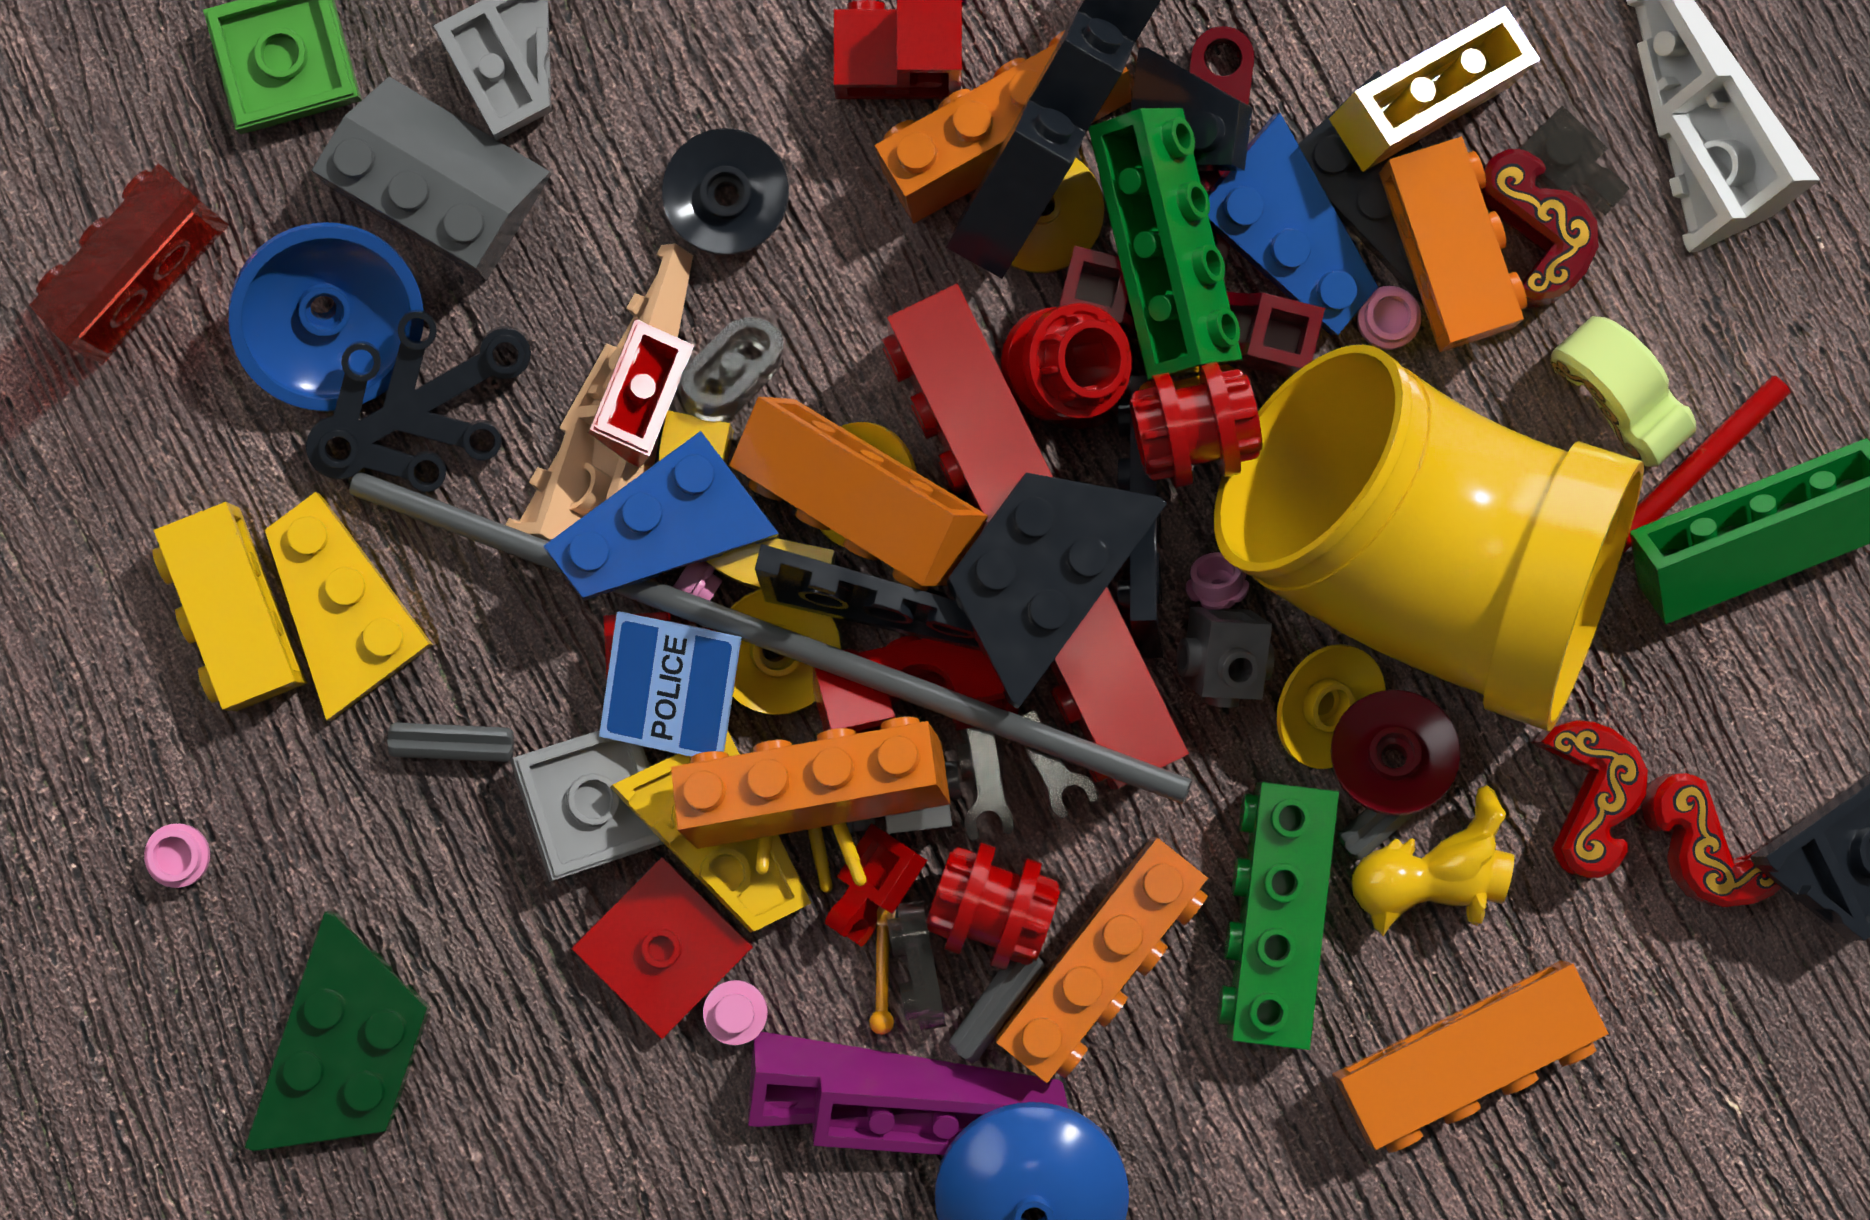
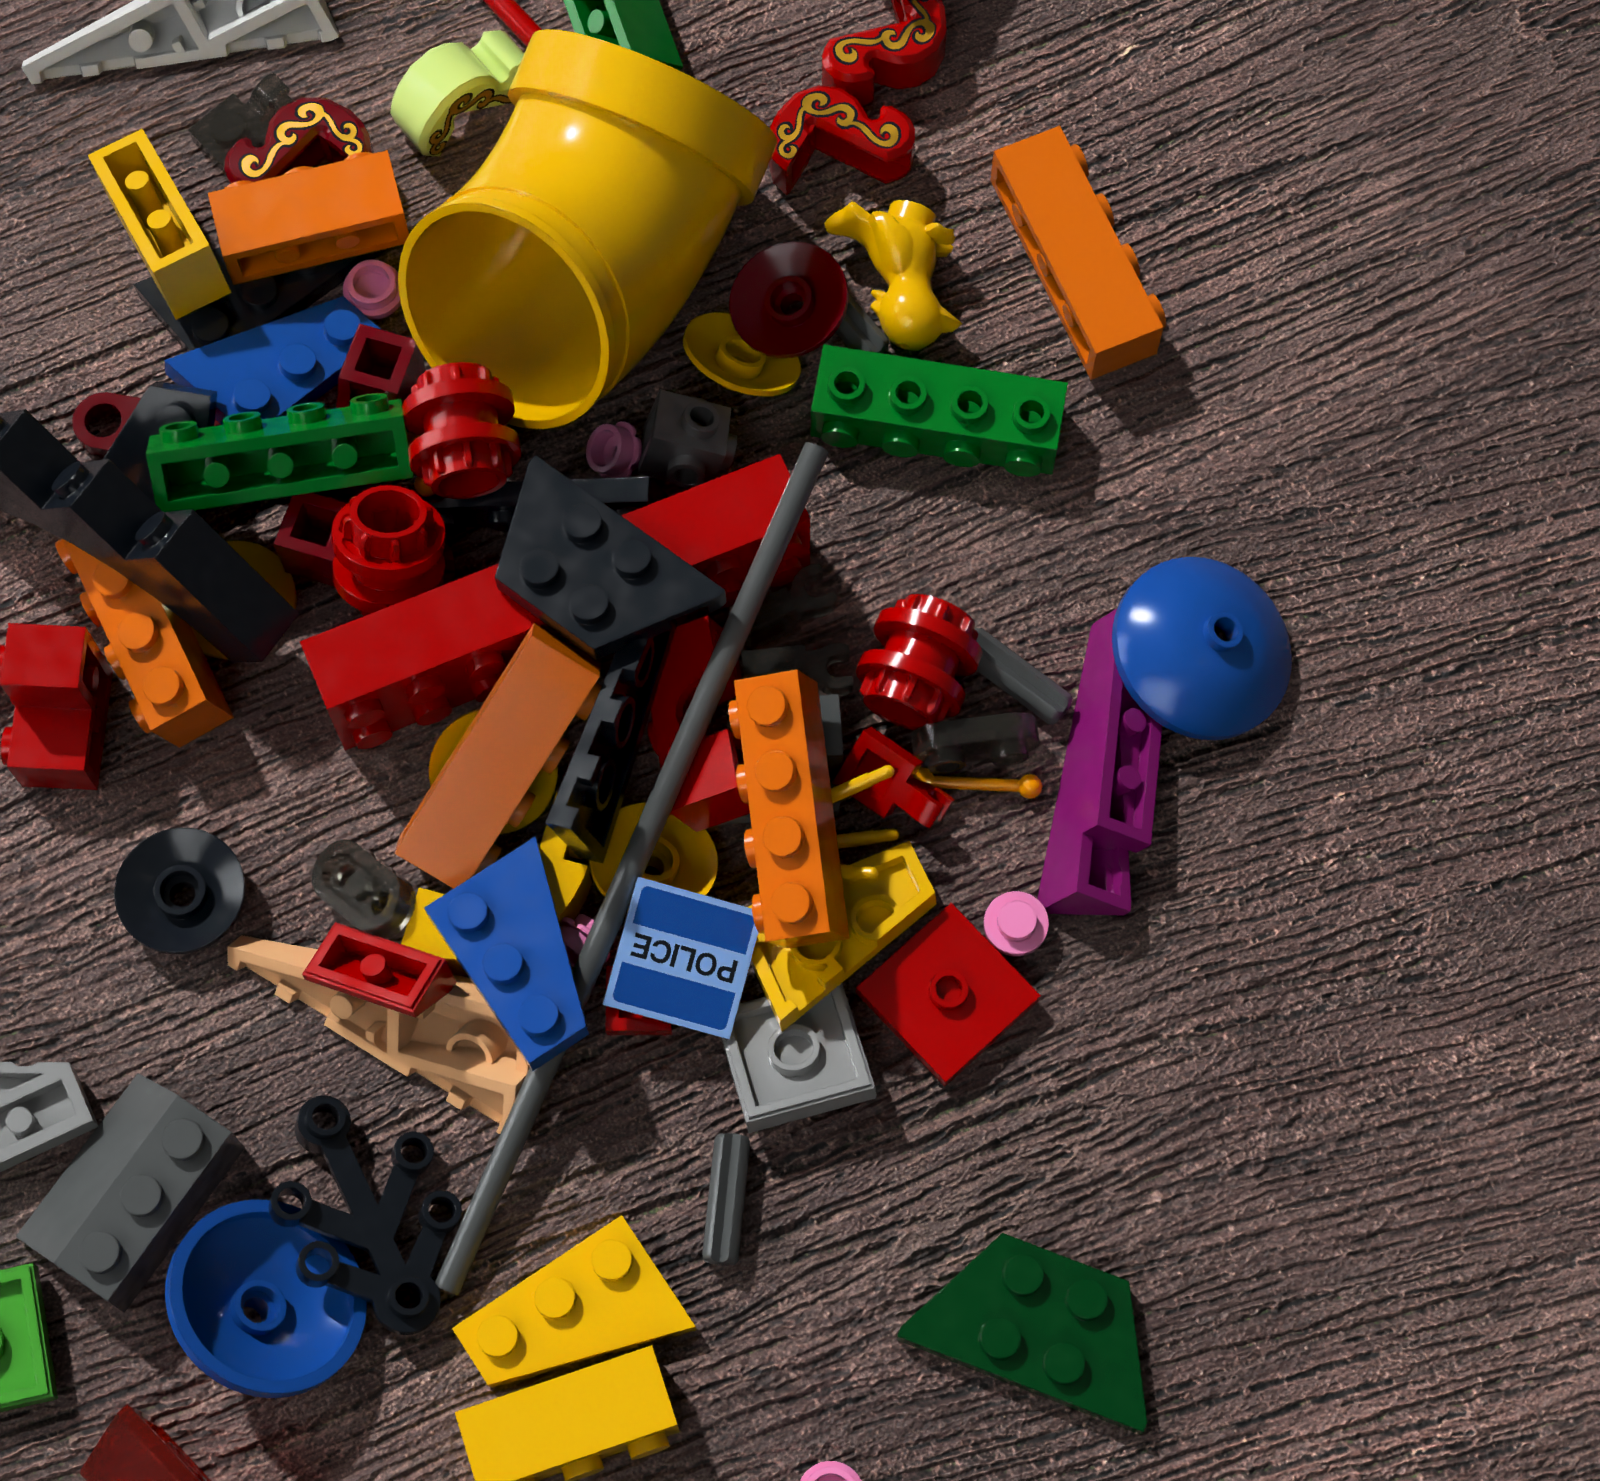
camera: 85 degrees left, 15 degrees down
(1101, 958) = (974, 569): orange brick -> none

